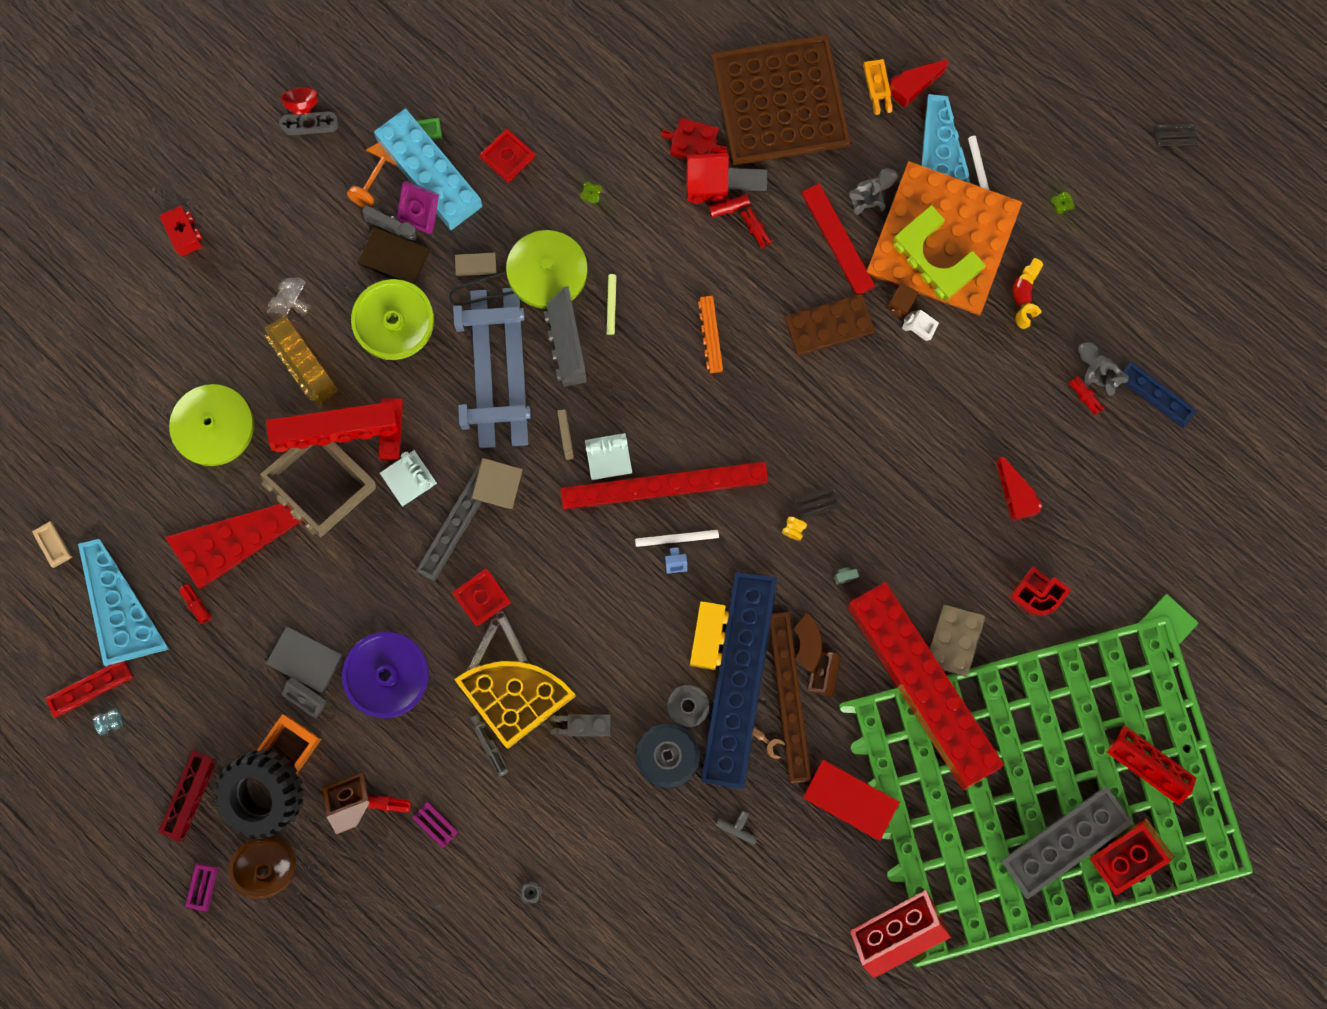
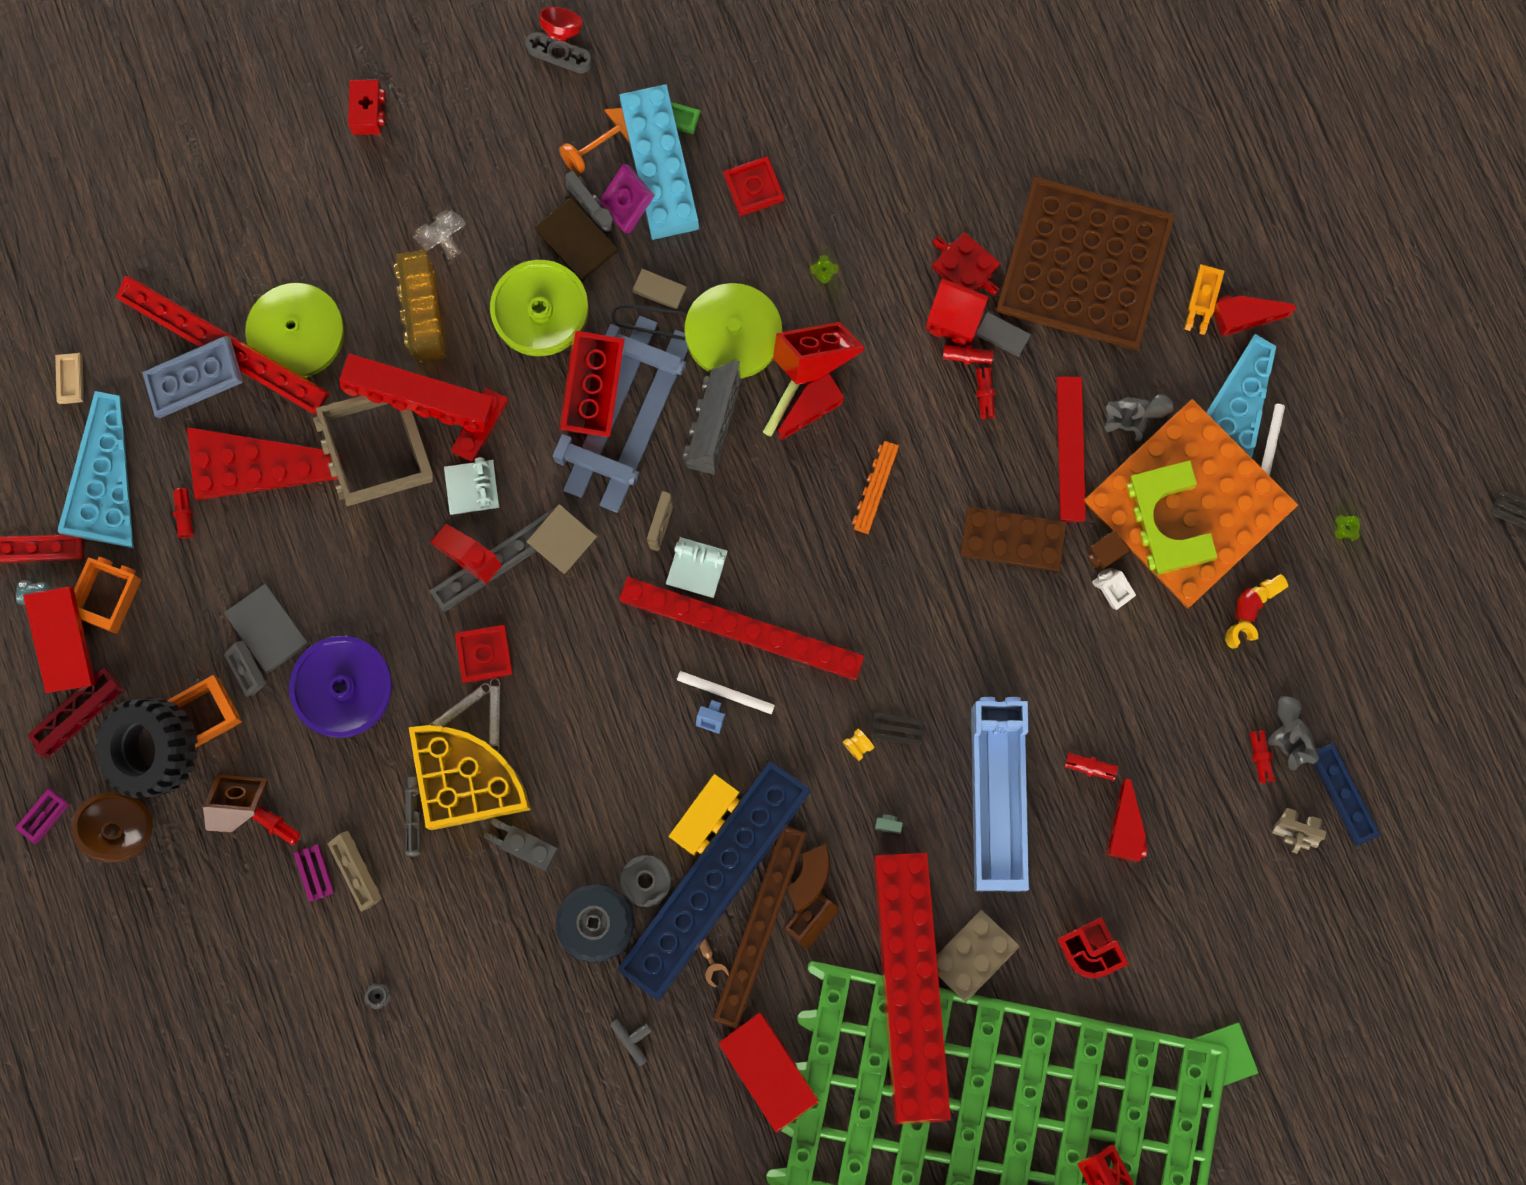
camera: 30 degrees right, 0 degrees up
(146, 715) = (86, 582): none -> orange window
(147, 745) = (59, 639): none -> red tile
(150, 497) = (192, 377): none -> sand blue tile
(160, 462) = (202, 332): none -> red plate
(430, 528) = (467, 553): none -> red slope
(461, 357) = (591, 384): none -> red slope
(466, 808) = (354, 871): none -> dark tan plate
(616, 255) = (815, 351): none -> red slope
(635, 290) = (815, 401): none -> red slope
(915, 513) = (999, 794): none -> light blue brick
(969, 462) = (1091, 766): none -> red pin
(1139, 438) = (1297, 833): none -> dark tan hips

